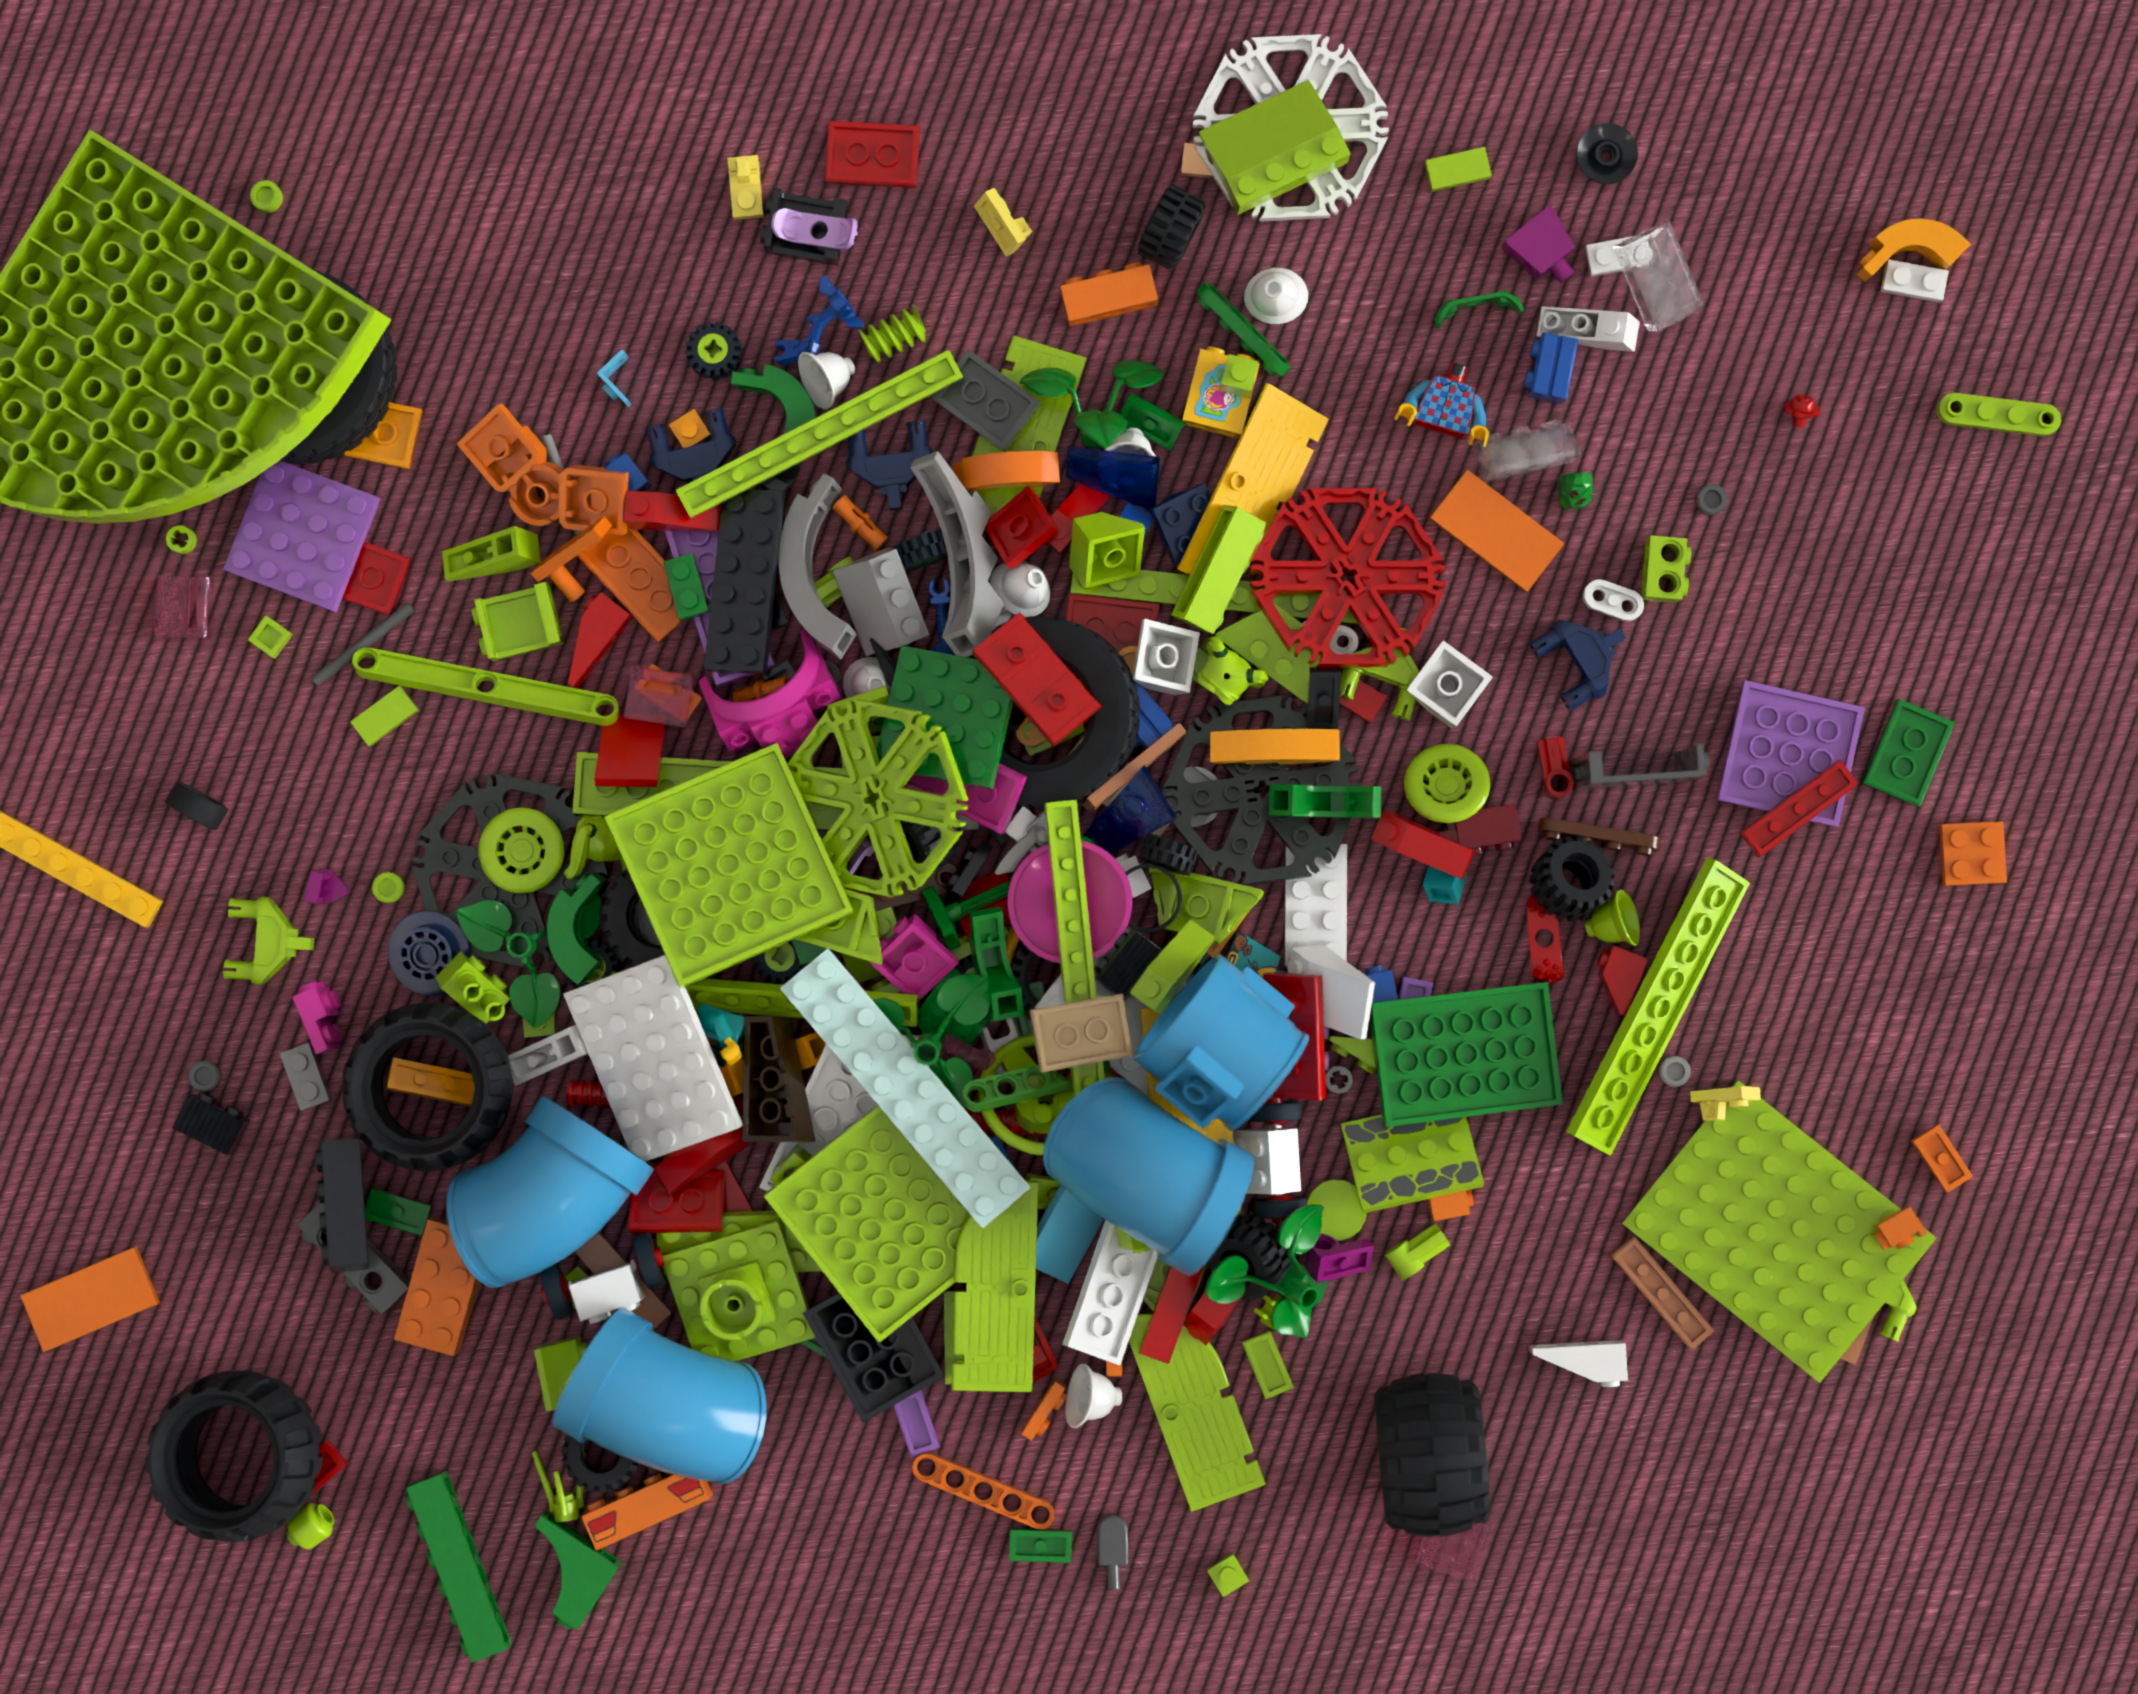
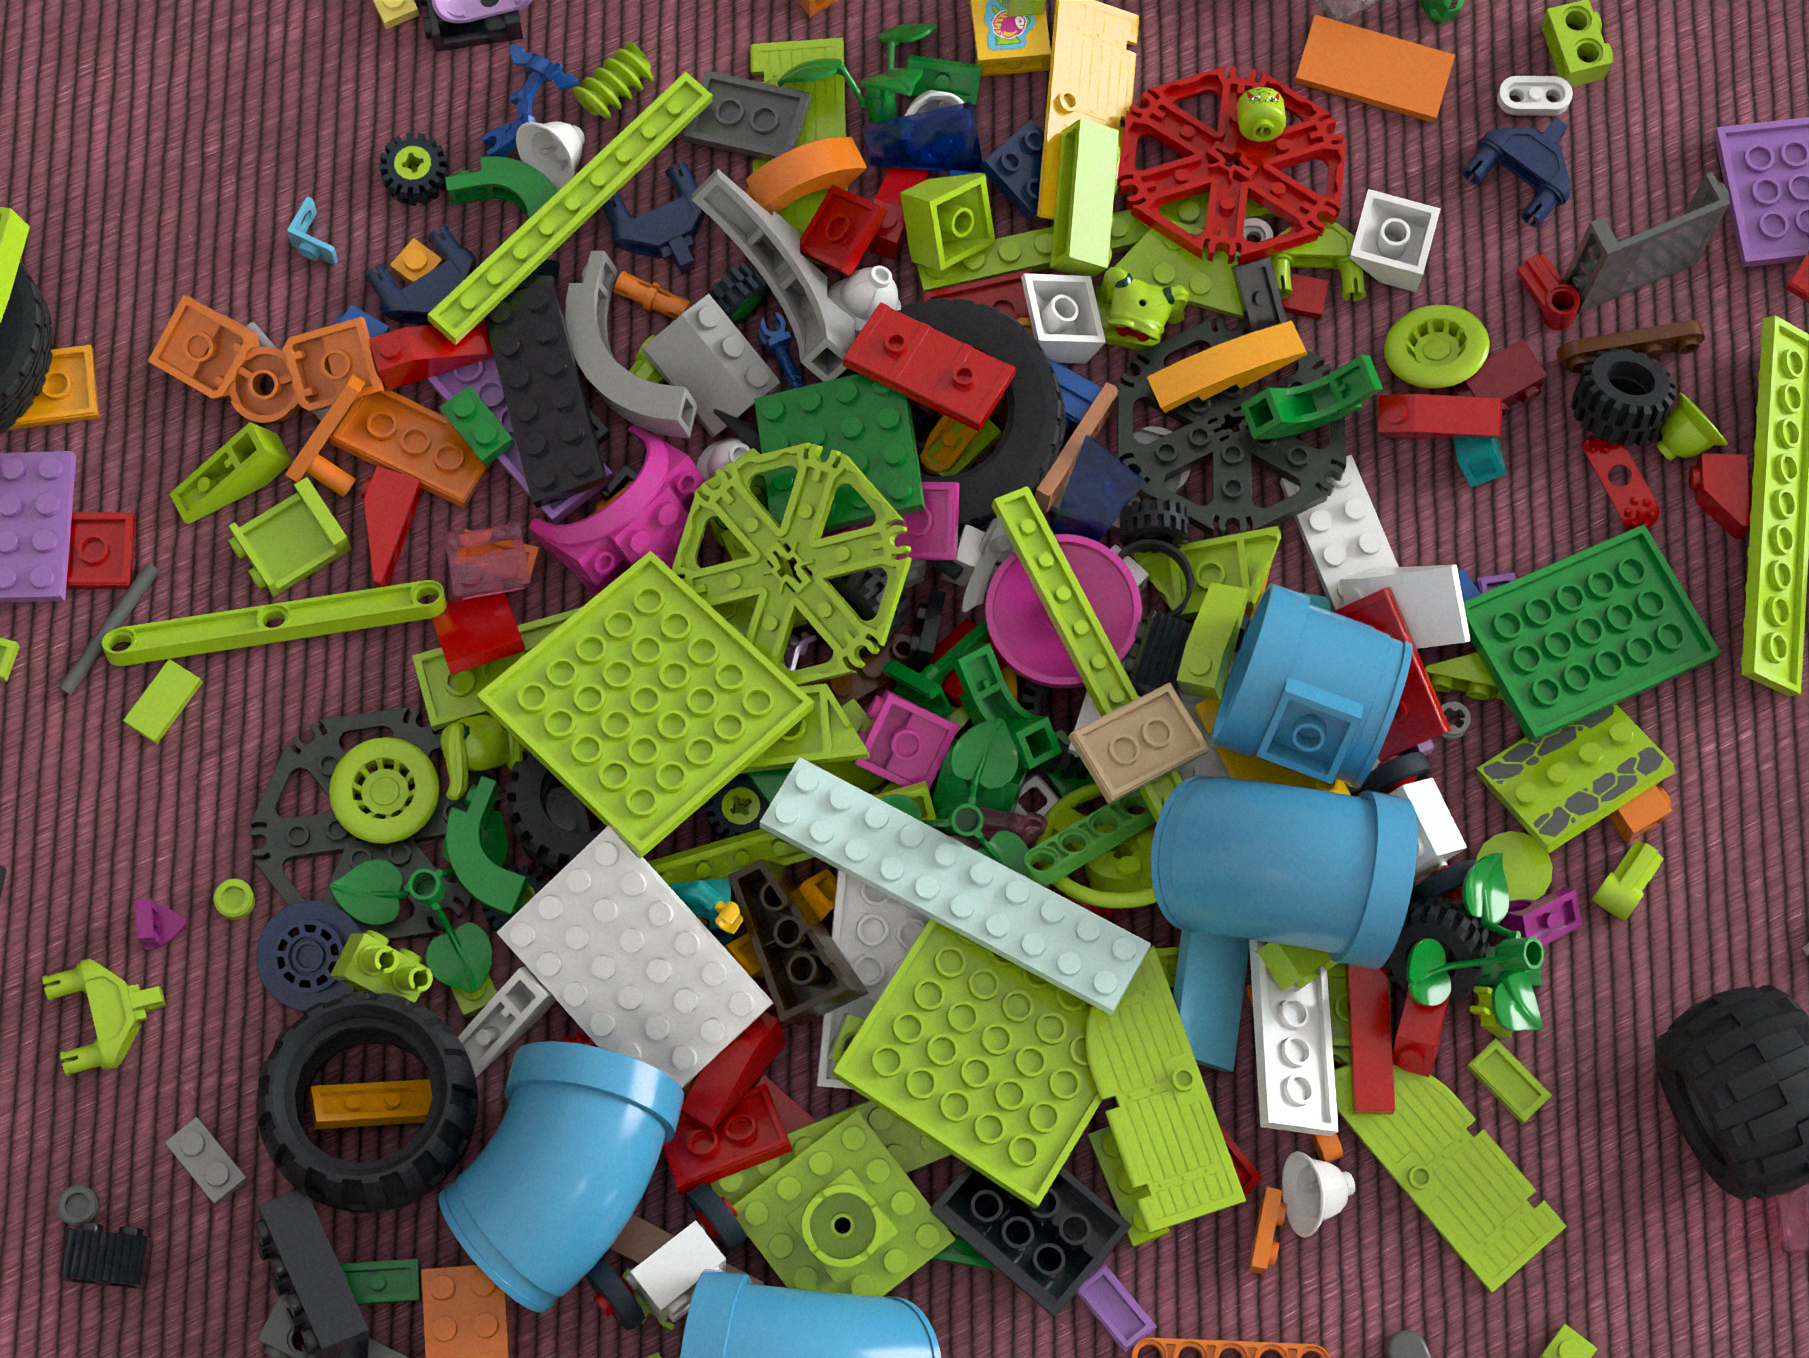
camera: 30 degrees left, 15 degrees down
(316, 1008) = (199, 1064): dark pink plate -> none
(1384, 546) = (1261, 114): none -> lime head

